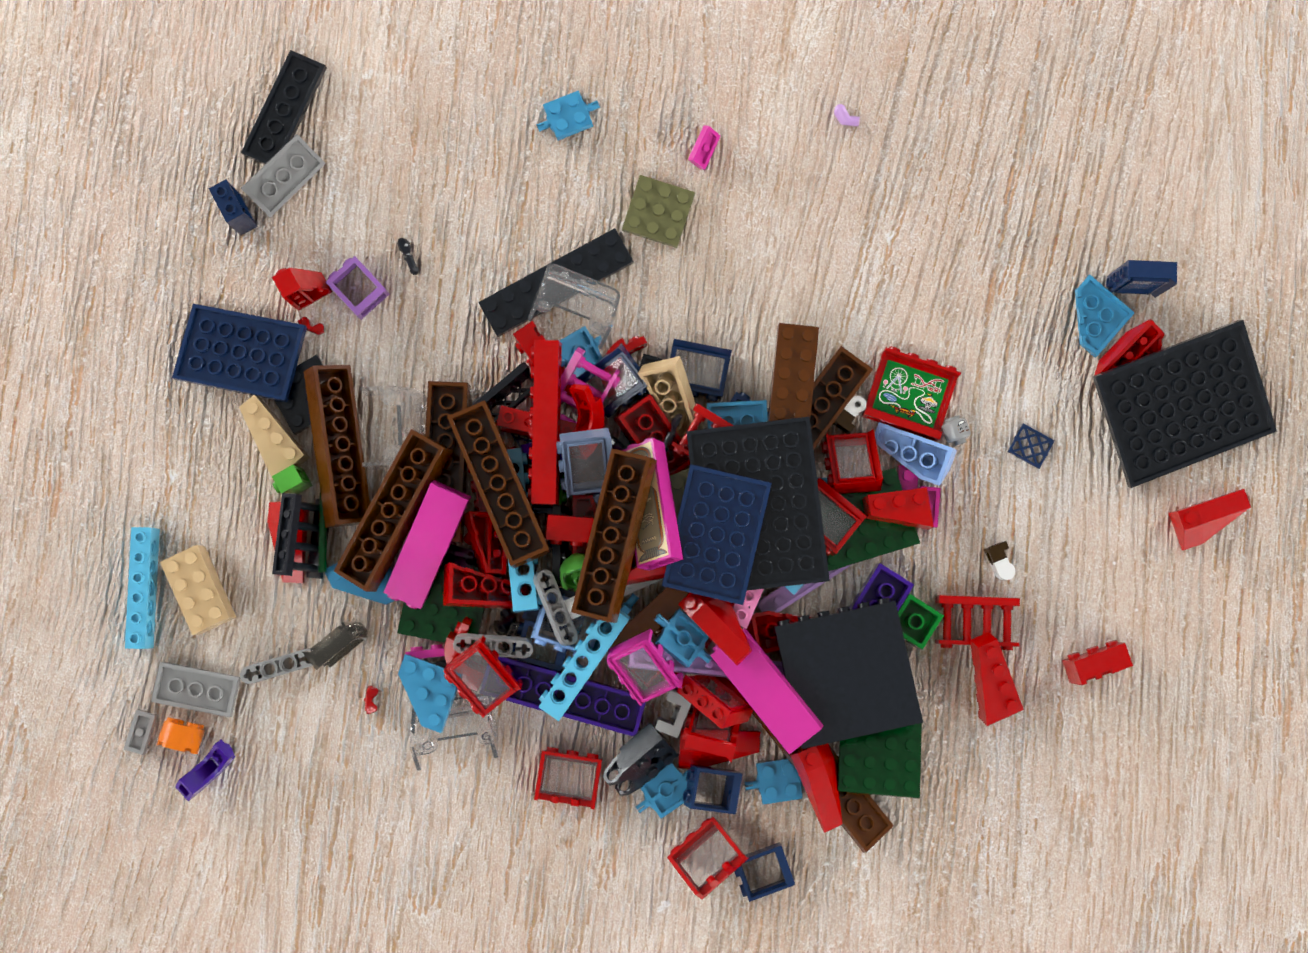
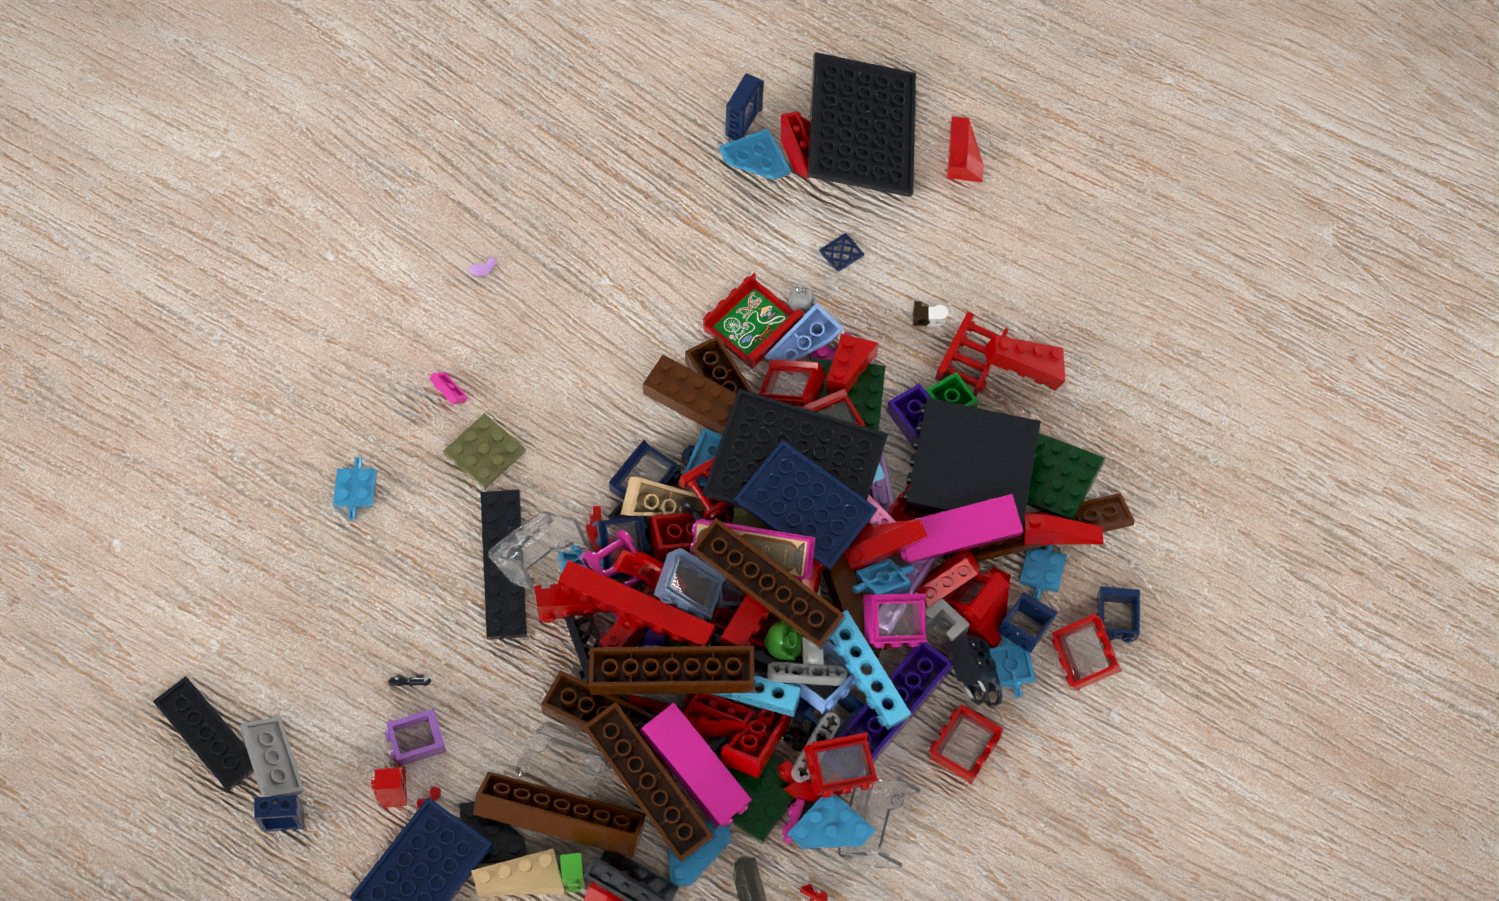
camera: 70 degrees left, 20 degrees down
(322, 557) = (636, 865): dark green bar -> none
(852, 409) = (753, 380): leg -> none
(1097, 662) = (1047, 280): red wedge -> none

